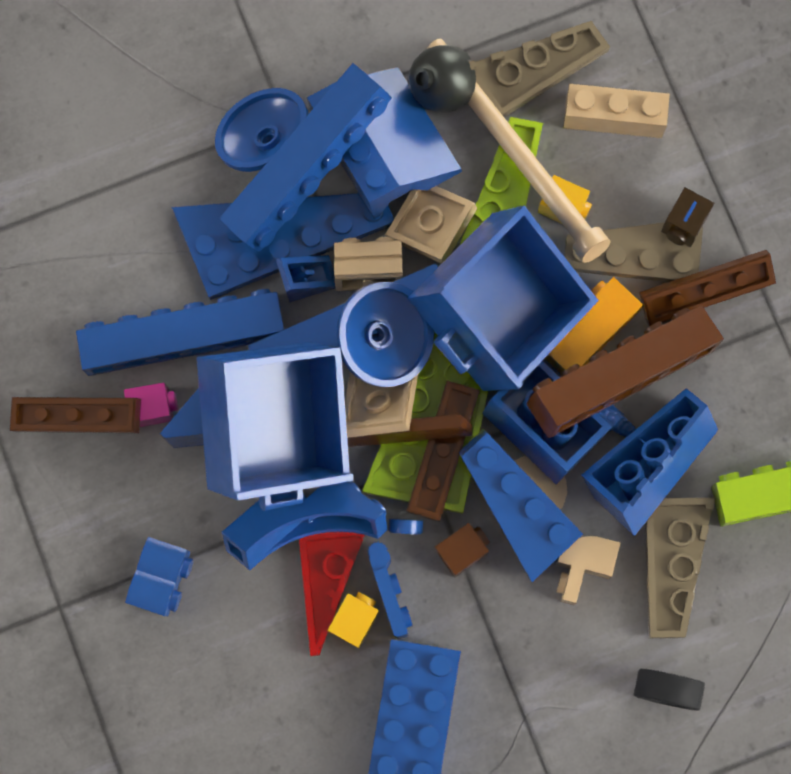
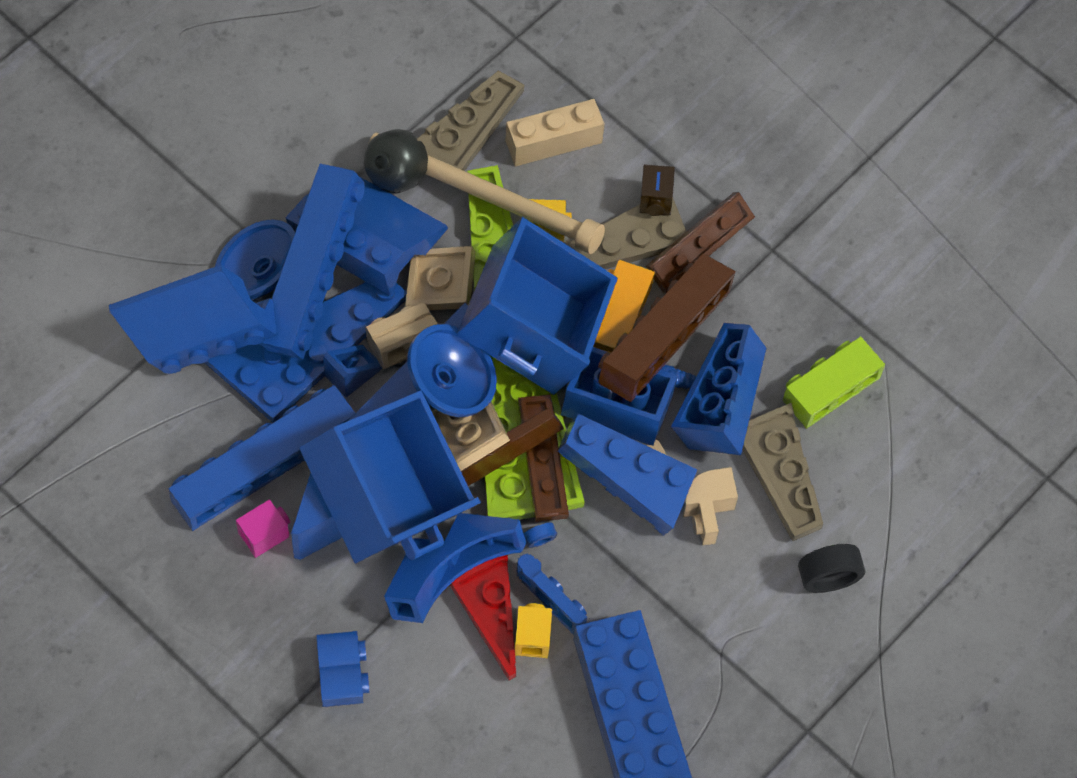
camera: 35 degrees left, 15 degrees down
(75, 415) = (199, 561): reddish brown tile -> none
(167, 177) = (194, 319): none -> blue piece
(463, 549) = (598, 533): reddish brown brick -> none

